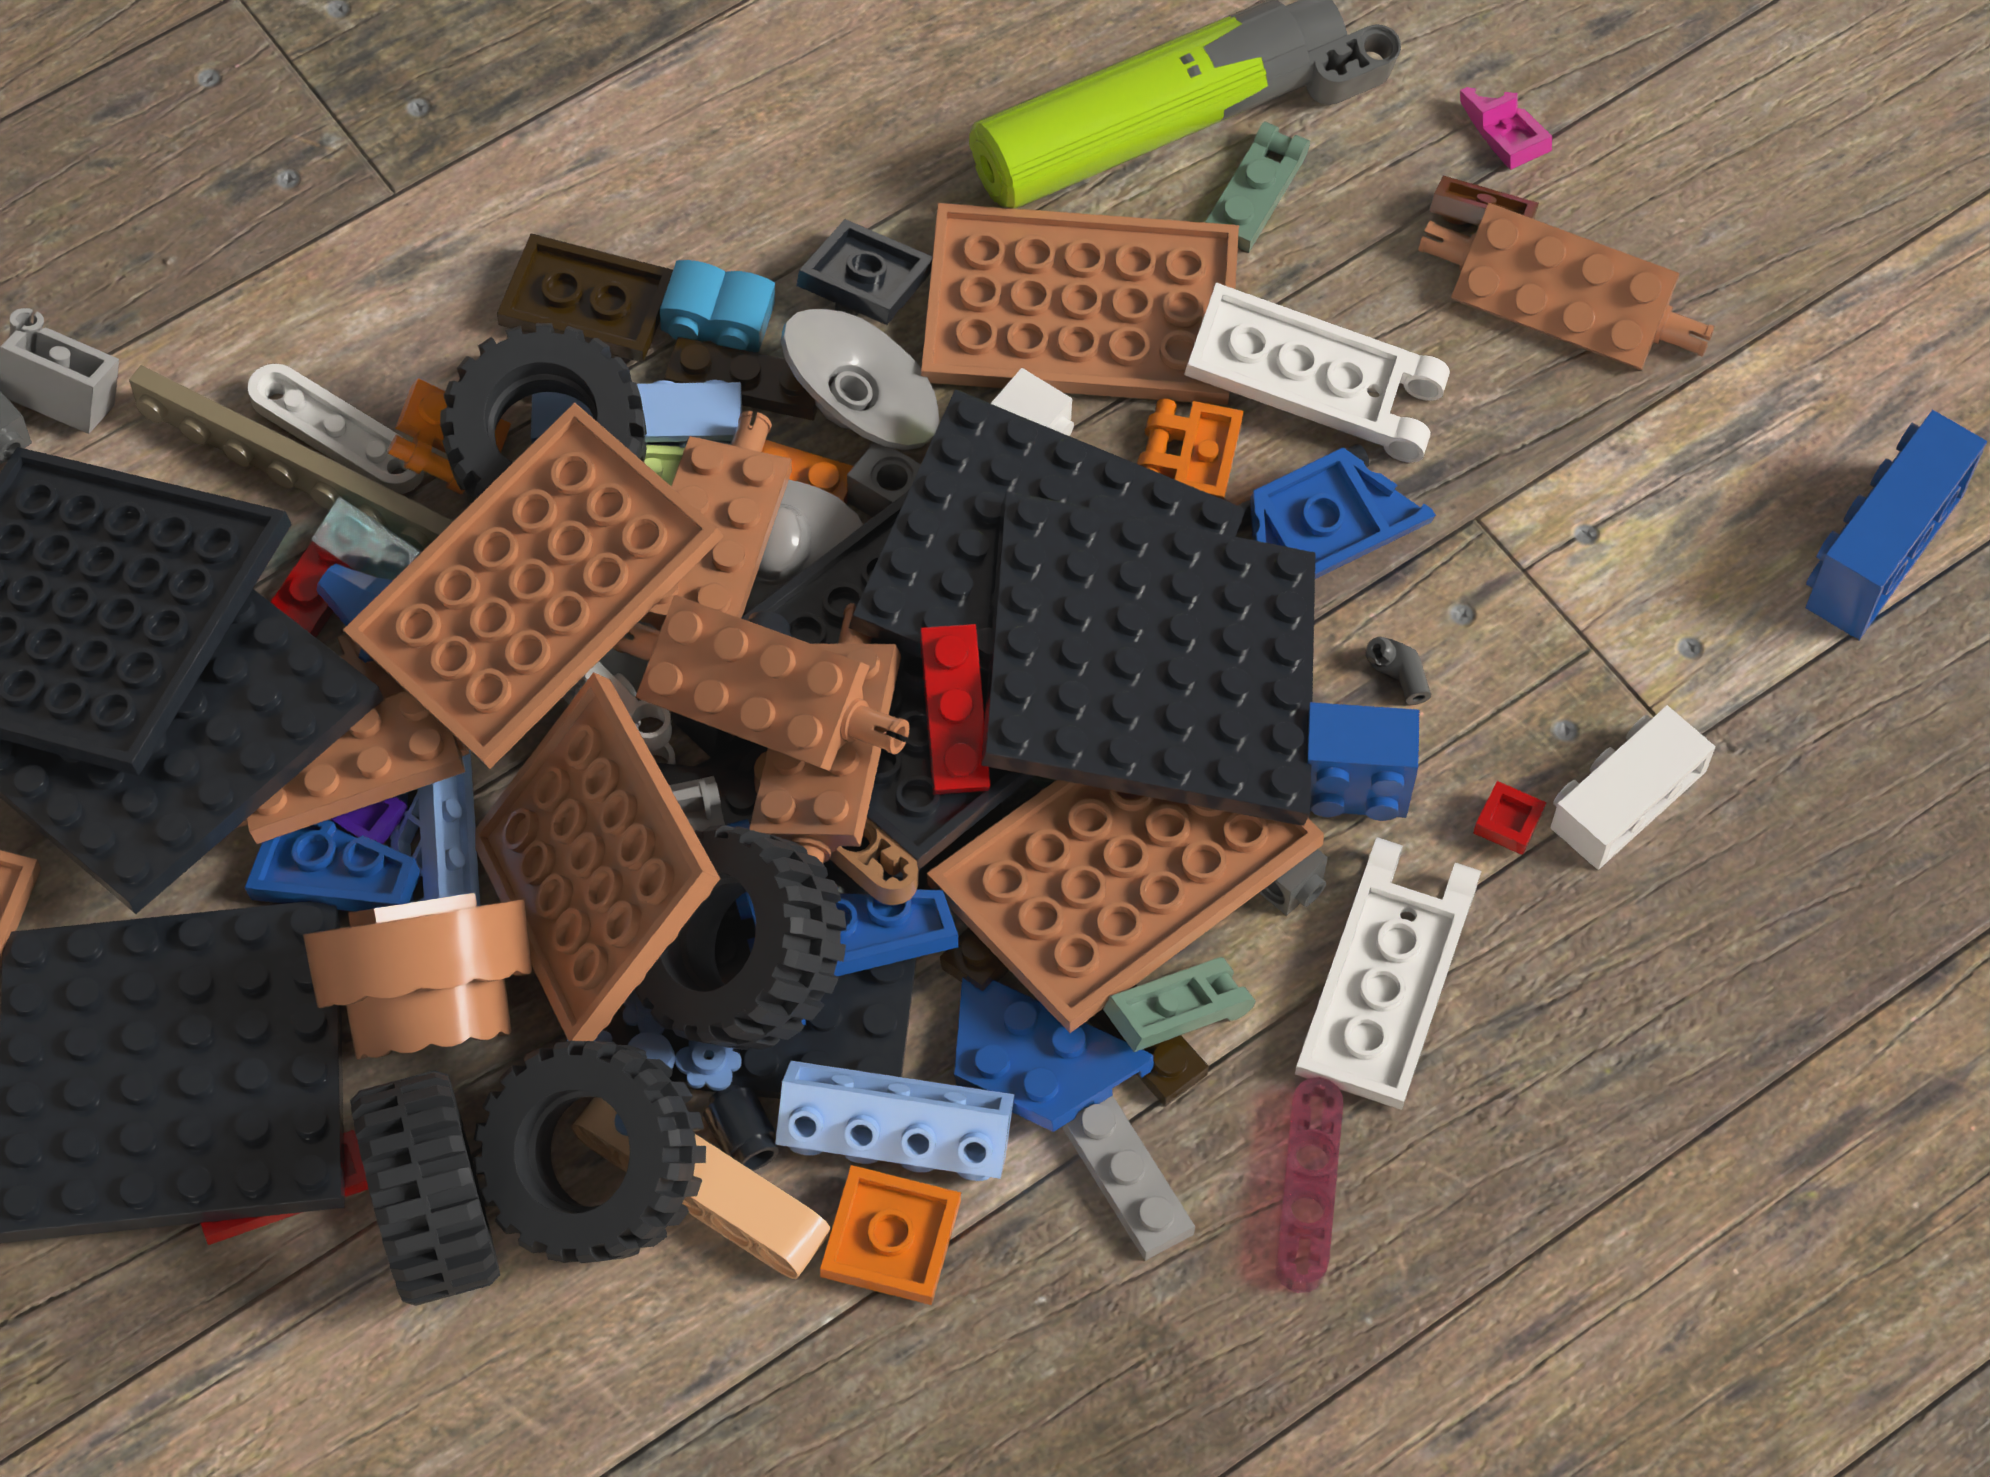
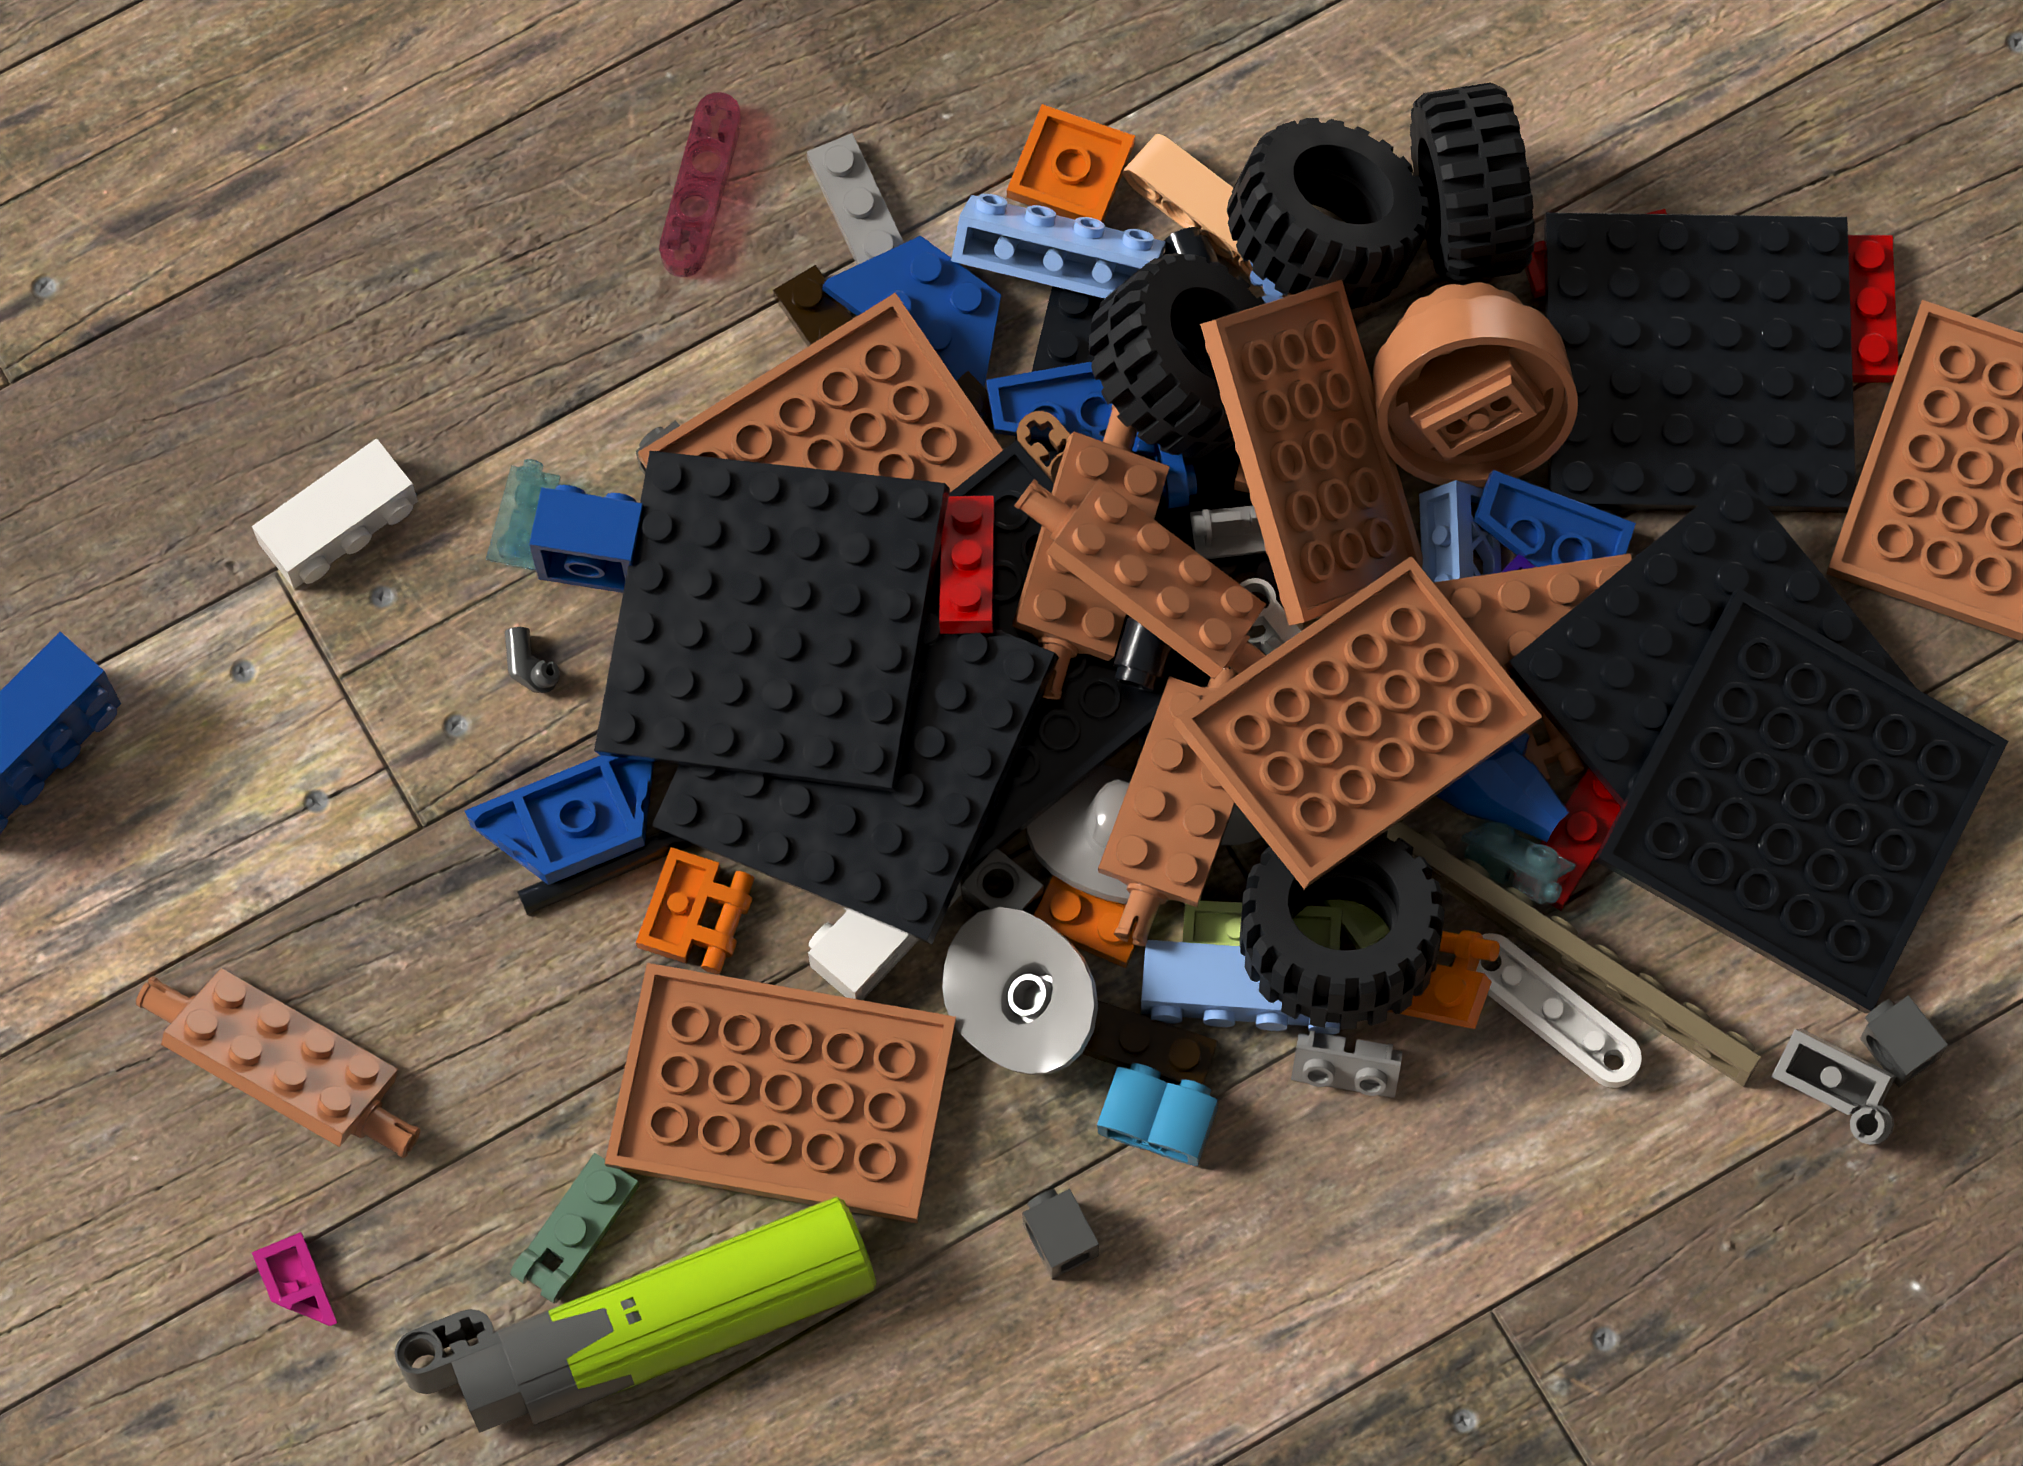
camera: 170 degrees left, 10 degrees up
(588, 291) = (1292, 1143): dark brown plate -> none
(801, 204) = (1059, 1232): none -> dark grey brick
(864, 272) = (1001, 1138): black hinge -> none
(1178, 1004) = (791, 327): sand green plate -> none
(1314, 370) = (561, 977): white hinge -> none
(1385, 981) = (598, 355): white hinge -> none
(1436, 808) = (517, 514): none -> clear light blue hinge
(1466, 202) = (343, 1171): reddish brown plate -> none
(1509, 817) = (456, 498): red plate -> none

